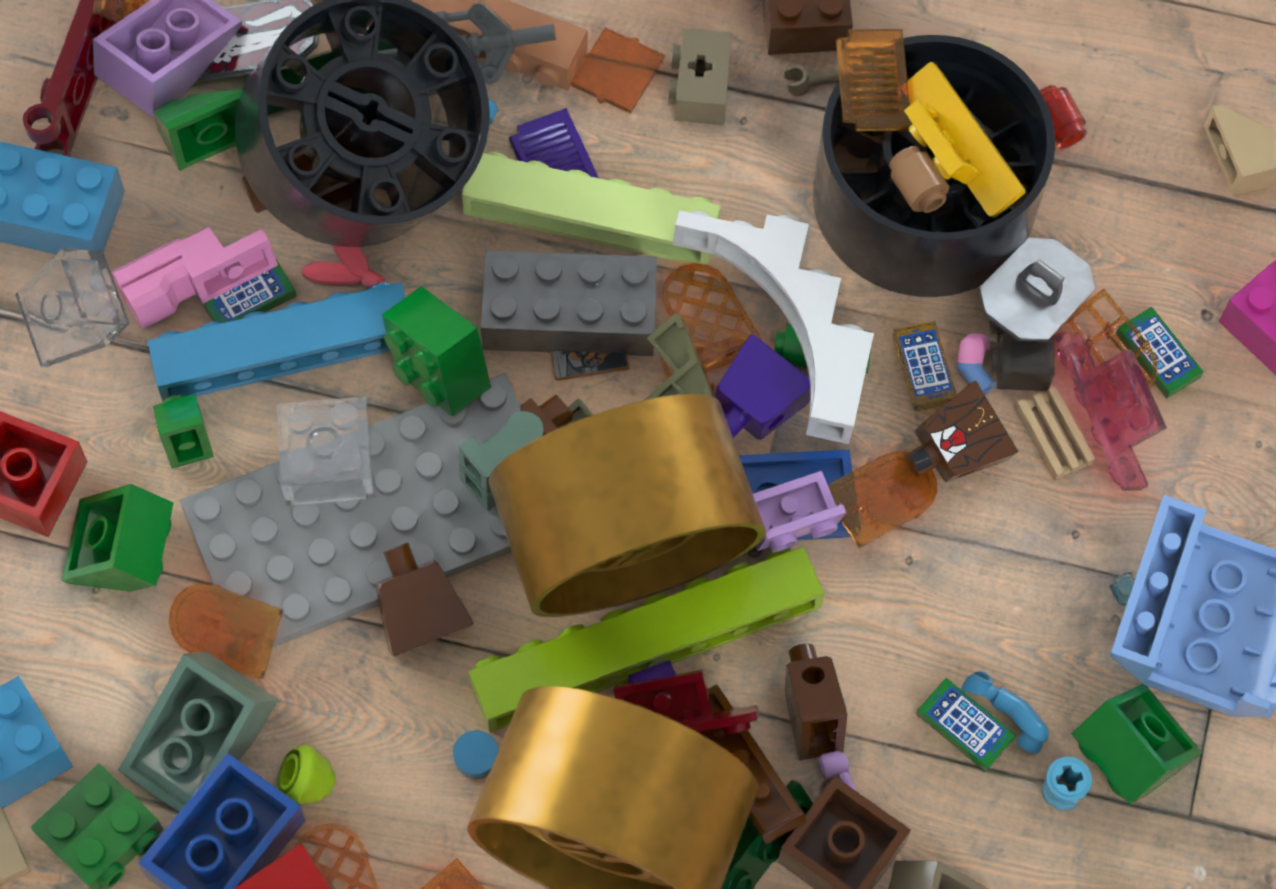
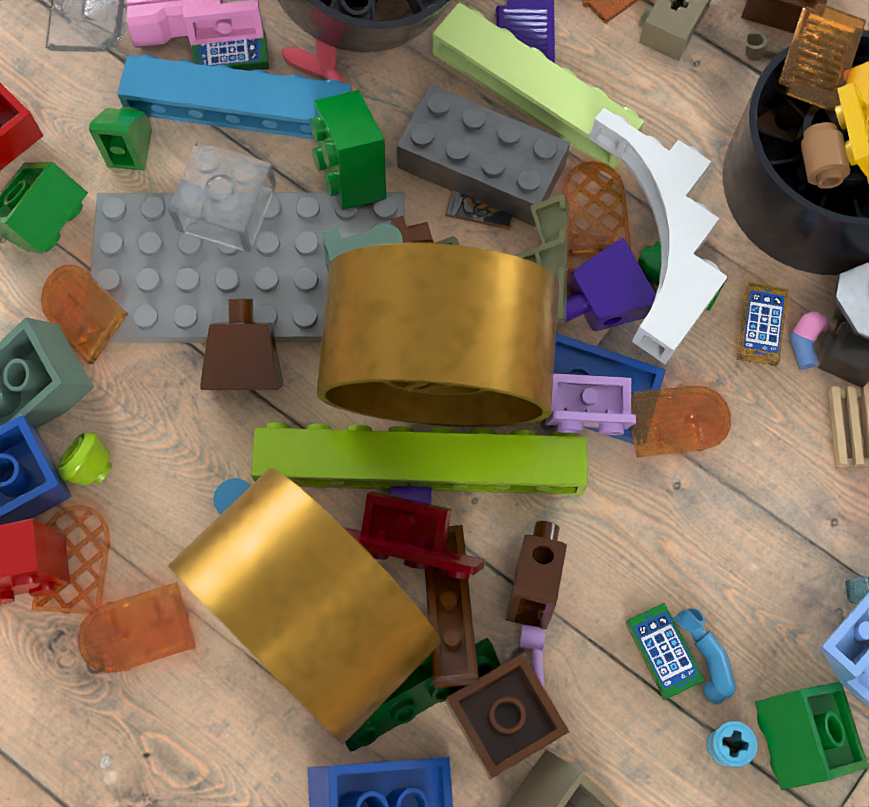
camera: 25 degrees right, 5 degrees up
(961, 438) = (768, 398): reddish brown torso -> none

